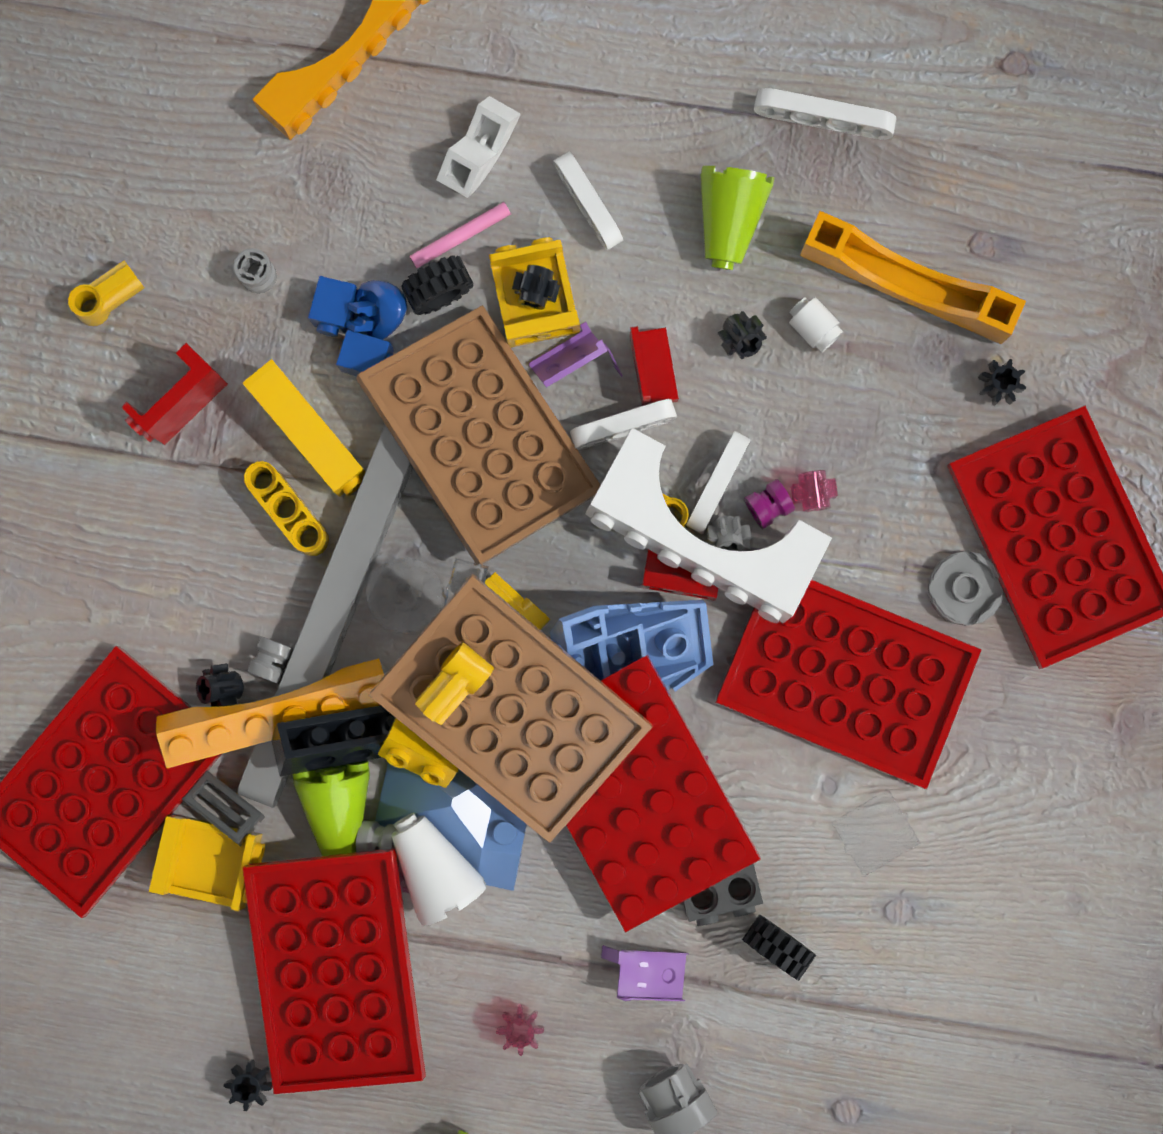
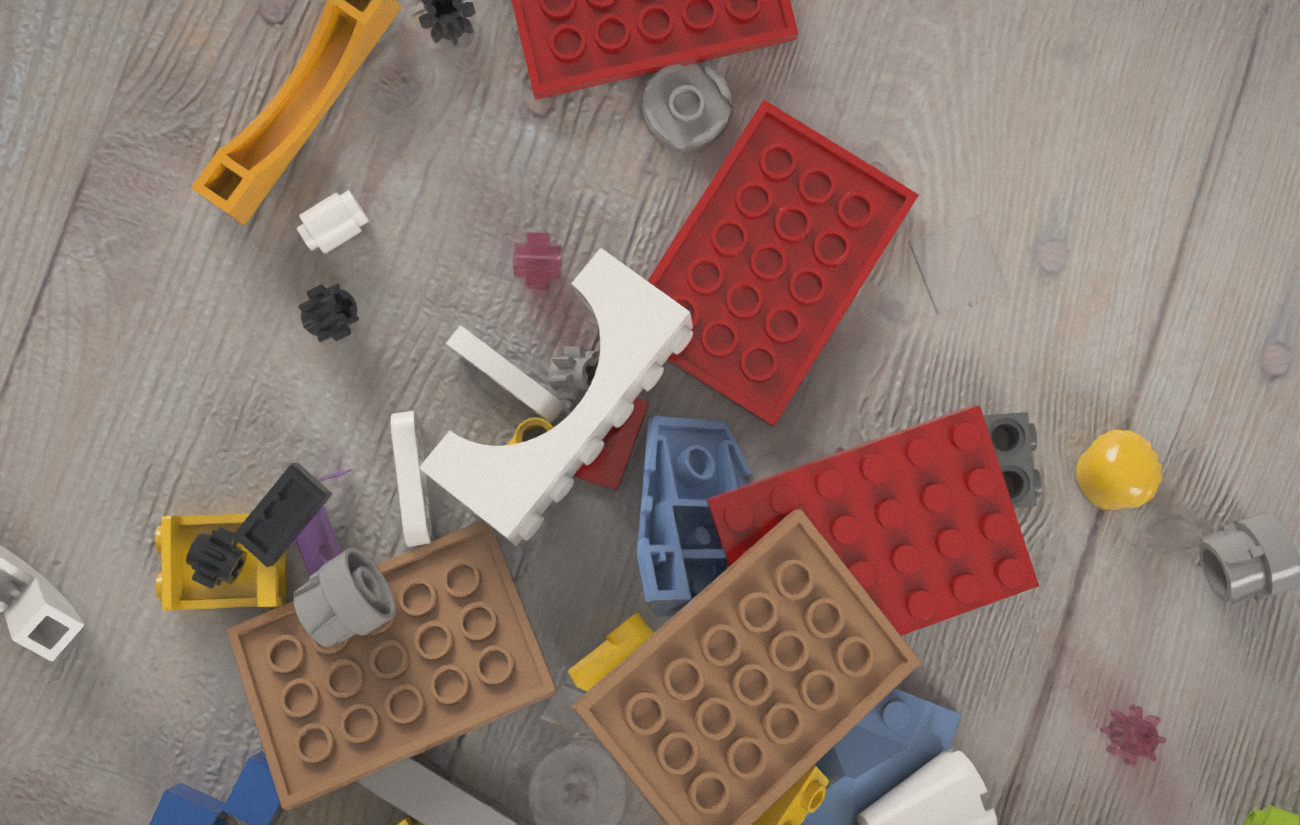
camera: 85 degrees left, 0 degrees up
(379, 308) = (202, 762): blue piece -> none
(437, 285) = (188, 683): black tyre -> none
(460, 235) = (131, 642): bright pink bar -> none
(461, 674) = (700, 746): yellow piece -> none
(521, 390) = (344, 599): none -> light grey piece
(578, 331) = (282, 514): none -> black plate
(588, 201) = (120, 473): white beam -> none
(648, 974) = (1088, 566): medium lavender piece -> none
(653, 365) = (345, 428): red panel -> none
(730, 989) = (1119, 471): none -> yellow hair
(731, 212) = (170, 297): lime cone -> none
(769, 504) = (543, 317): magenta wheel -> none
(779, 947) = (1082, 403): black tyre -> none
(825, 113) = (72, 163): white beam -> none

